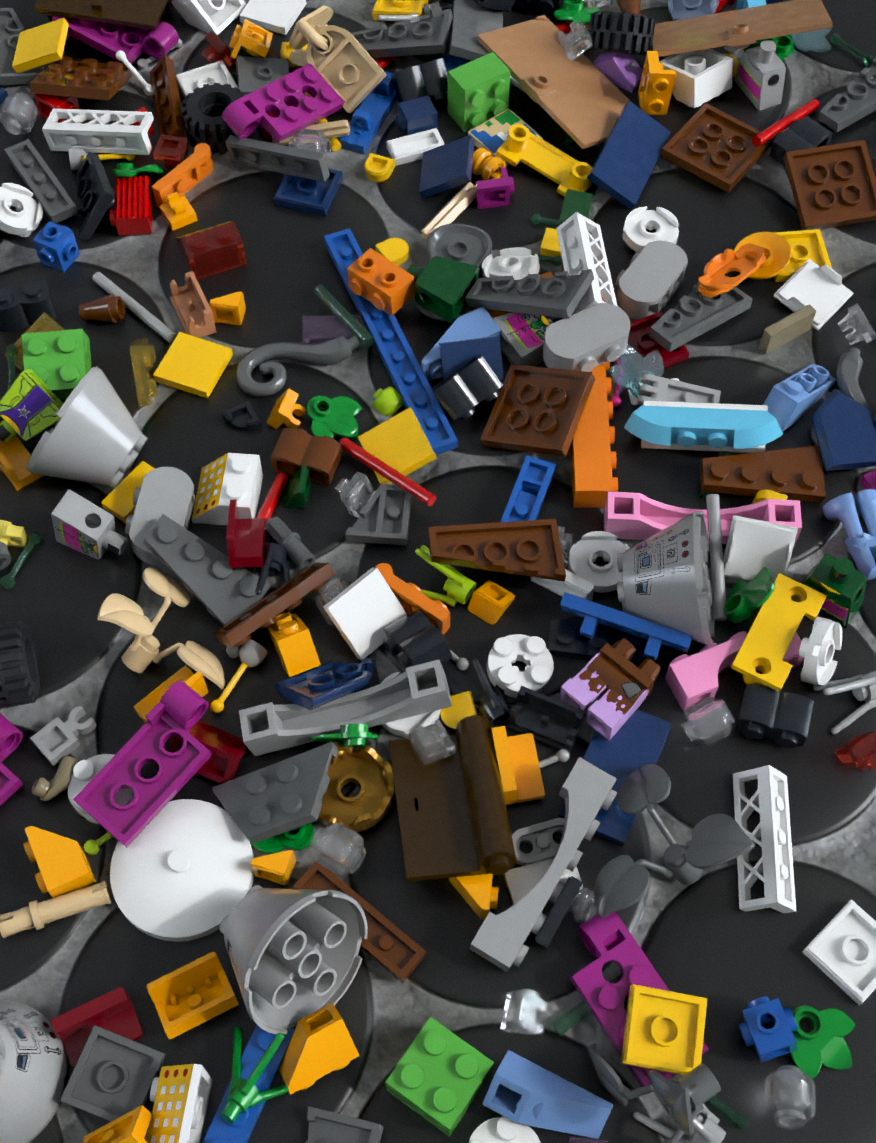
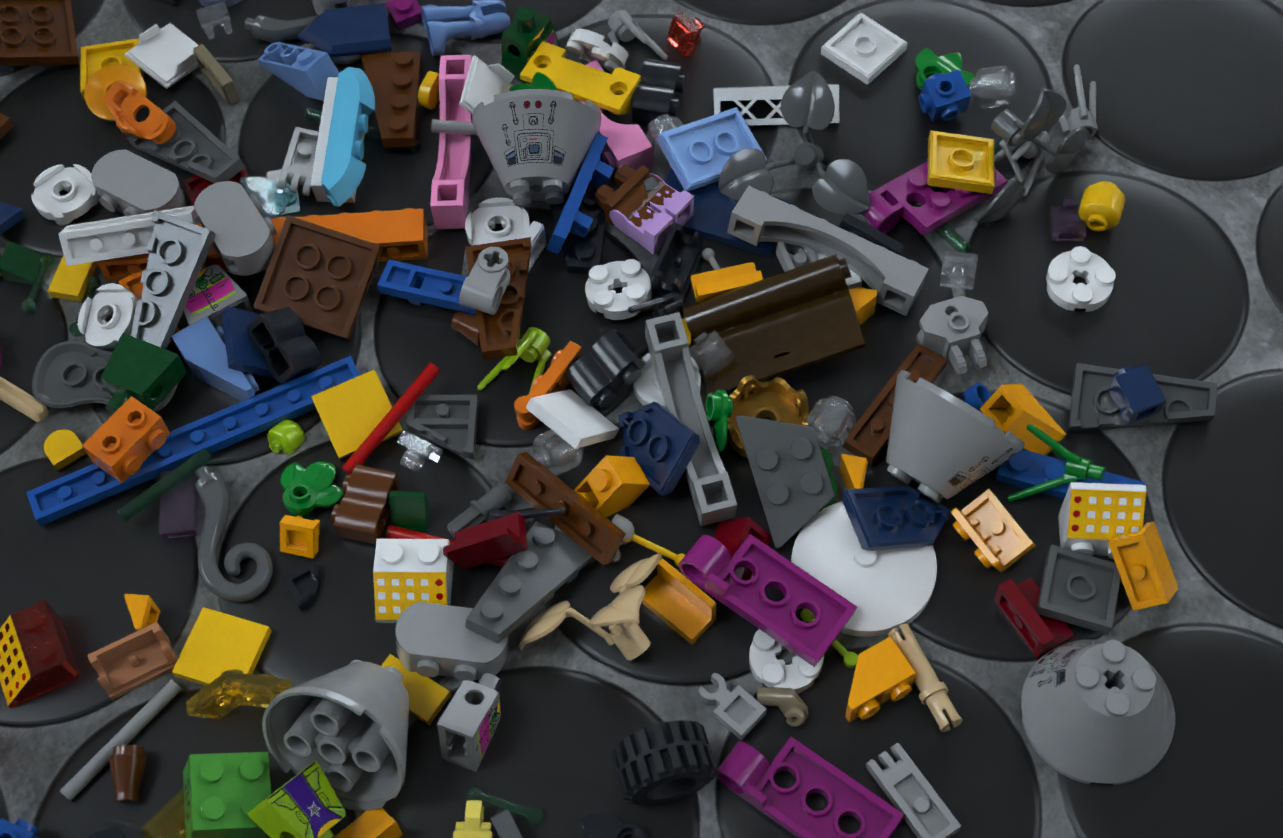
camera: 90 degrees left, 0 degrees up
(209, 890) = (893, 517): none -> dark blue tile
(363, 1009) = (976, 395): none -> blue hinge
(429, 994) = (955, 333): none -> light grey hinge
(439, 1076) = (1026, 324): bright green brick -> none
(490, 602) = (546, 317): light orange slope -> none
(498, 528) = (486, 281): none -> light grey piece
(544, 1099) = (1029, 252): medium blue slope -> none
(691, 757) = (704, 146): none -> light blue tile

